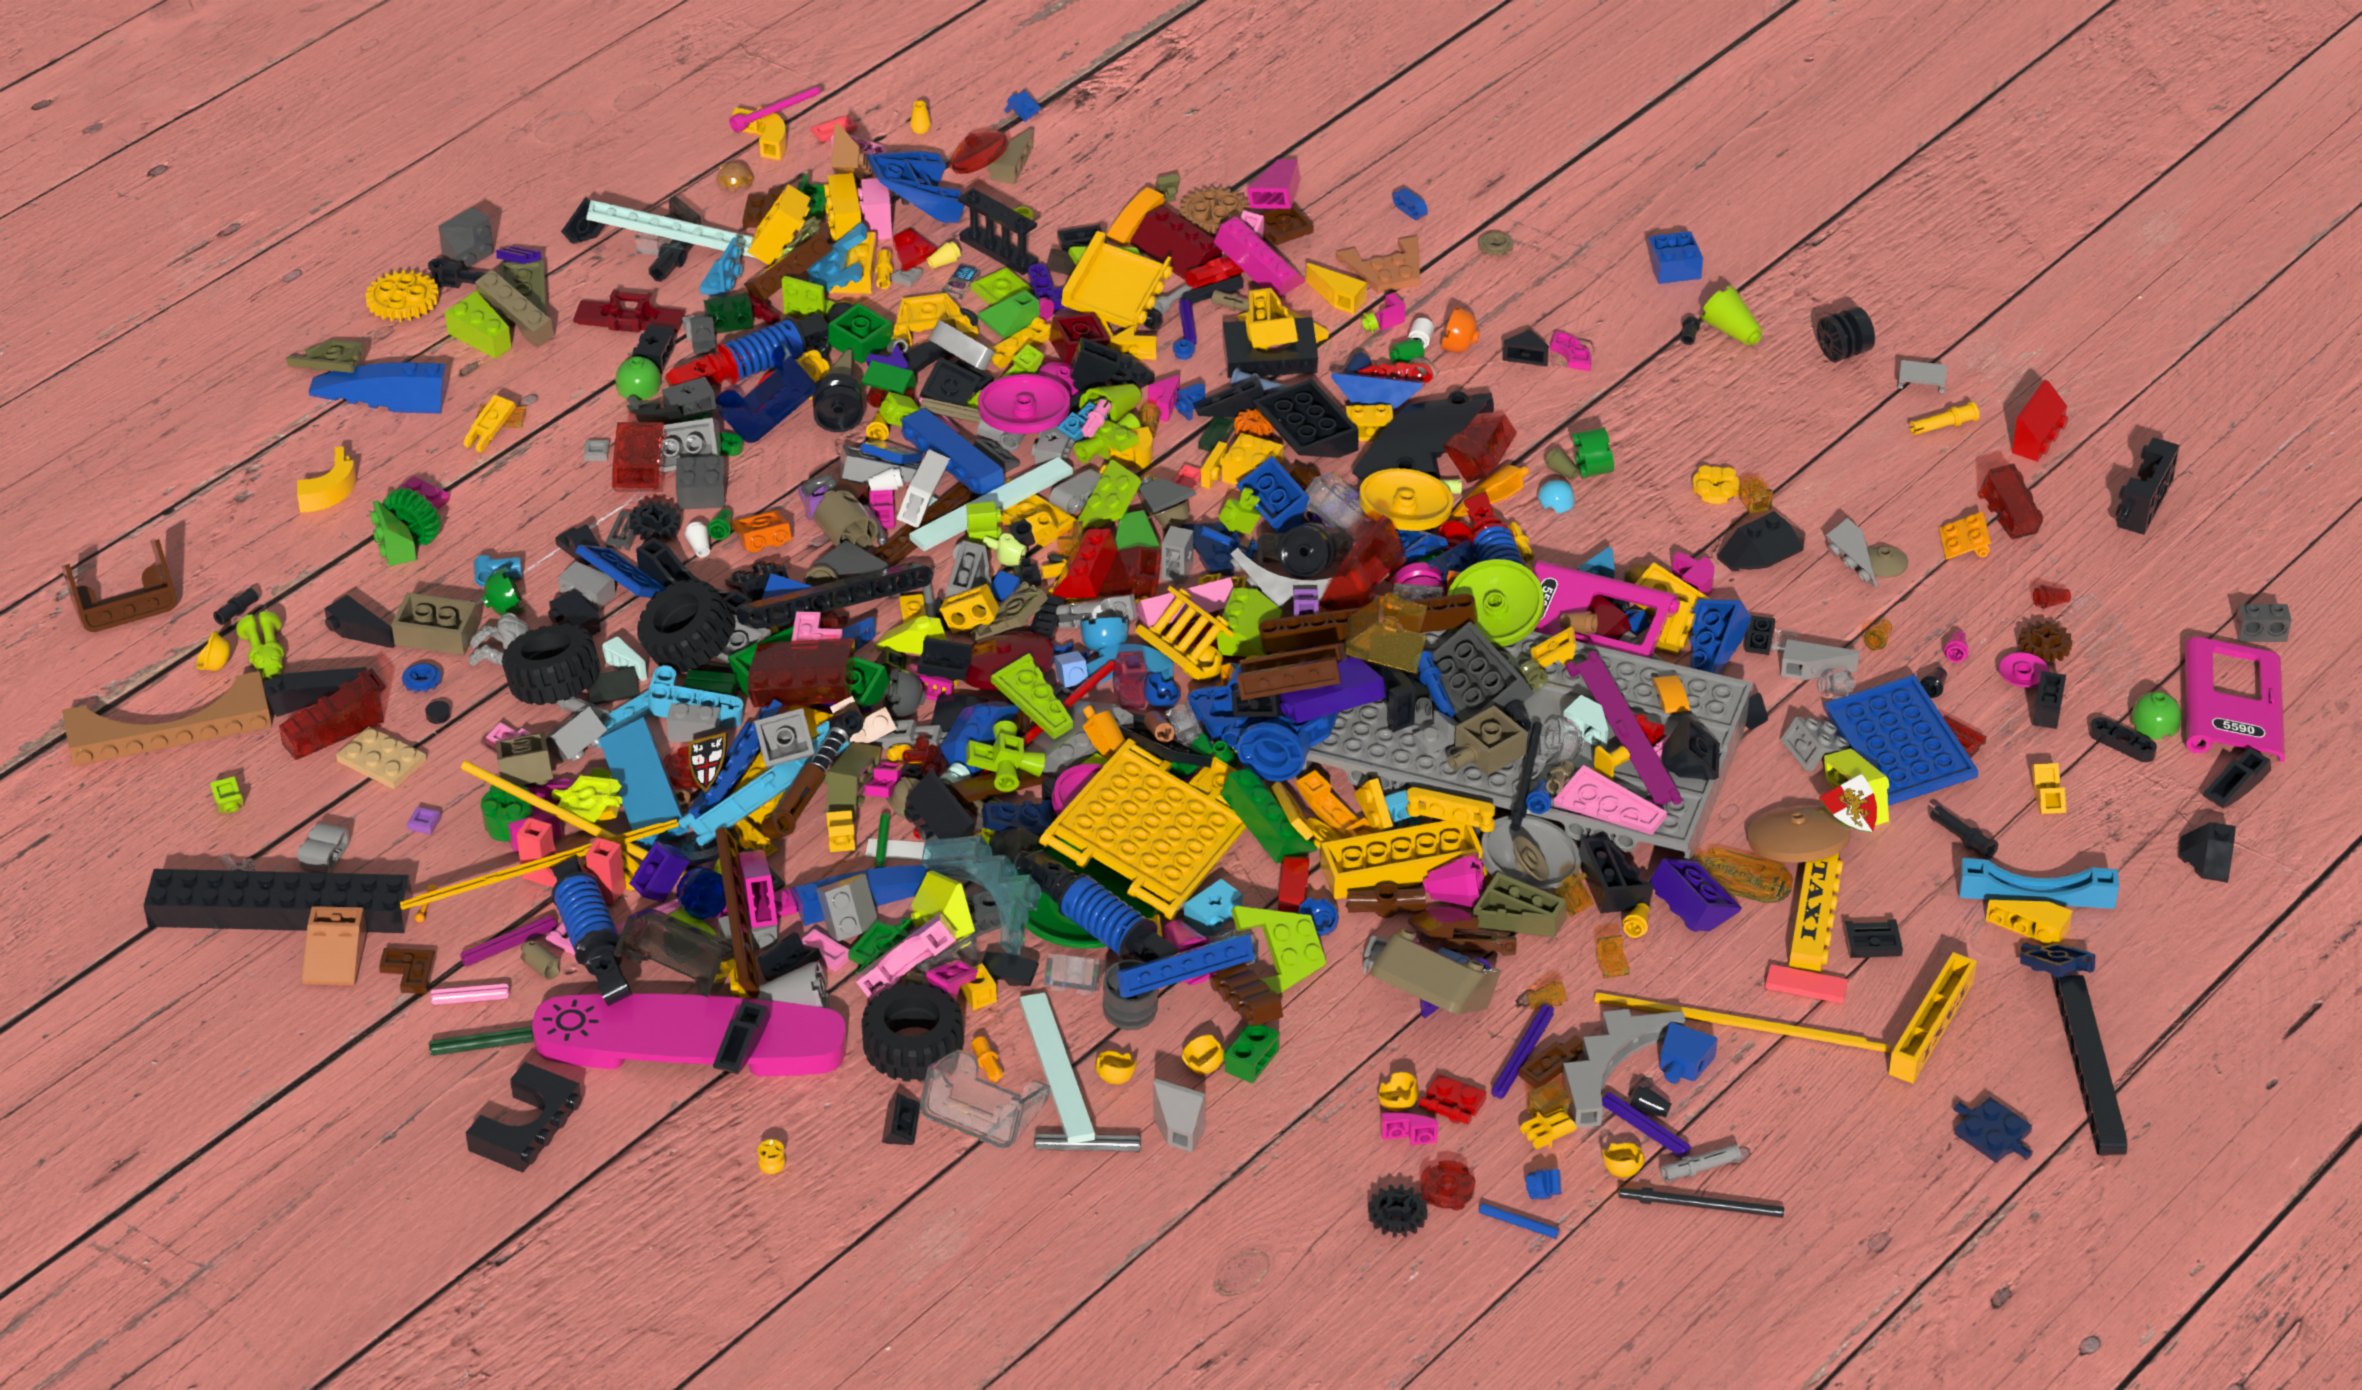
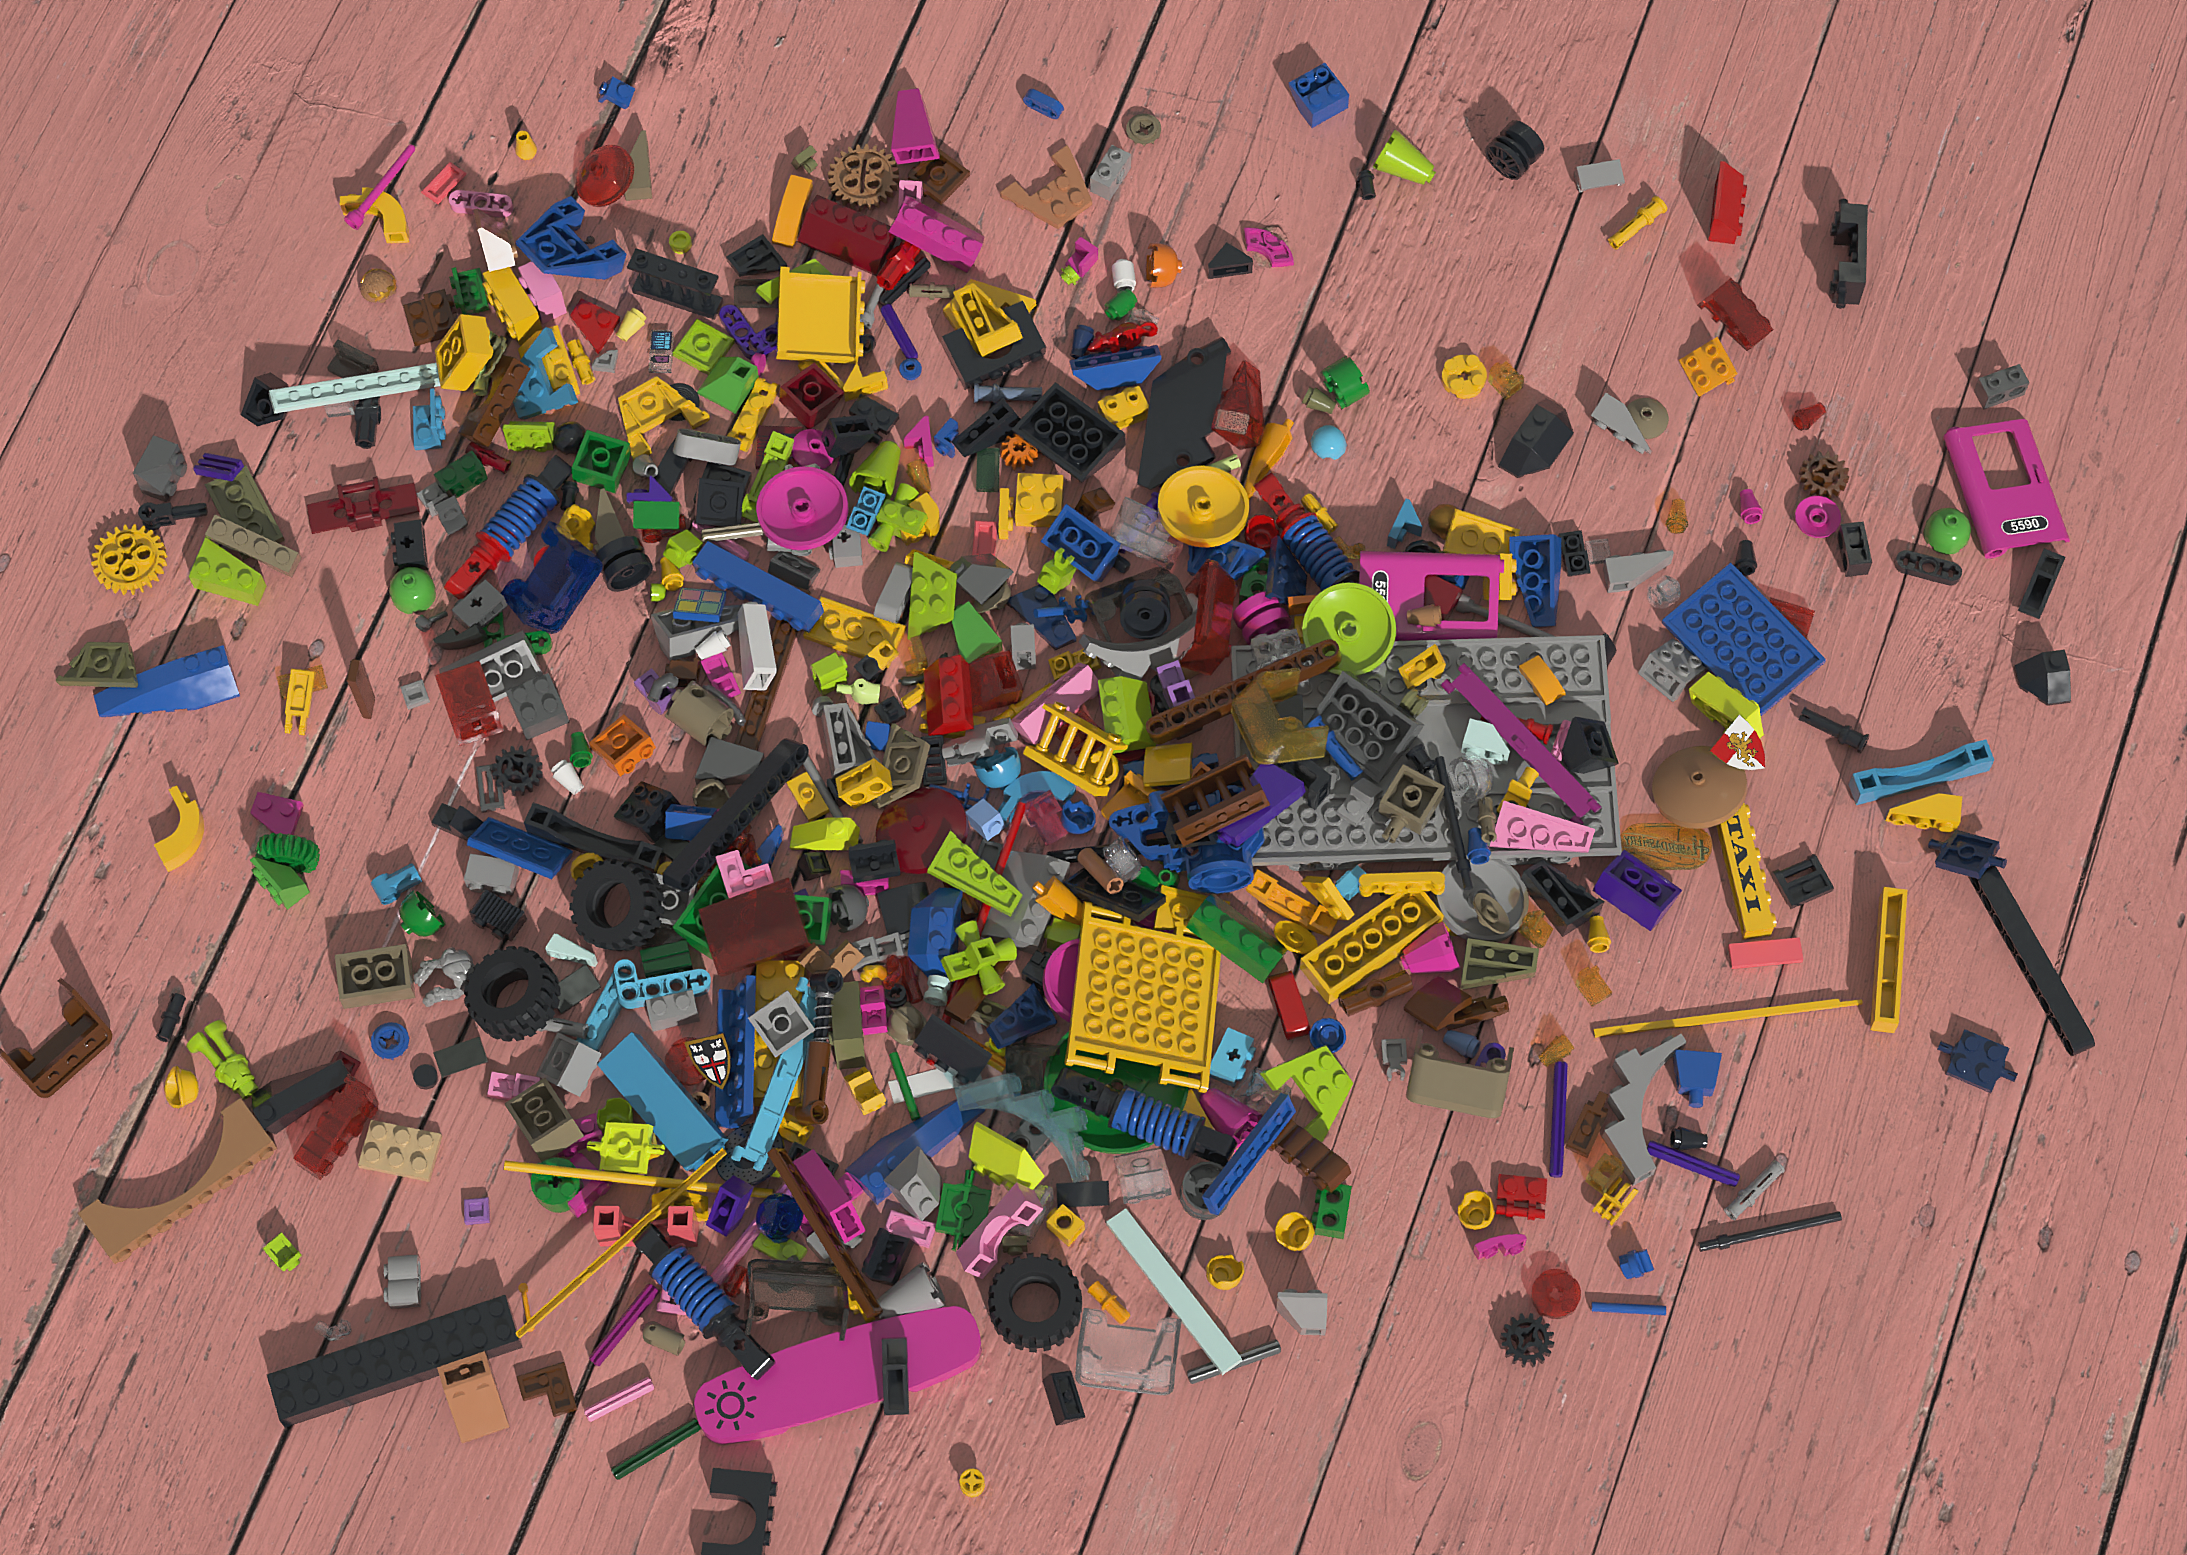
camera: 20 degrees left, 25 degrees up
(357, 623) = (296, 998): black slope -> none
(478, 700) = (460, 1057): none -> pearl dark grey hinge
(545, 414) = (361, 688): none -> reddish brown tile
(858, 436) = (657, 592): none -> lime hinge
(951, 976) = (1048, 1235): dark pink slope -> none
(1004, 497) = (821, 637): light aqua tile -> none
(1096, 418) = (881, 509): bright pink axle -> none
(1292, 810) = (1258, 926): yellow tile -> none
(1336, 288) = (1024, 243): yellow slope -> none
(1447, 261) = (1110, 172): none -> light grey brick
(1623, 1159) = (1691, 1212): yellow hair -> none
(1694, 572) = (1496, 500): dark pink brick -> none
(2047, 788) = (1887, 654): yellow slope -> none

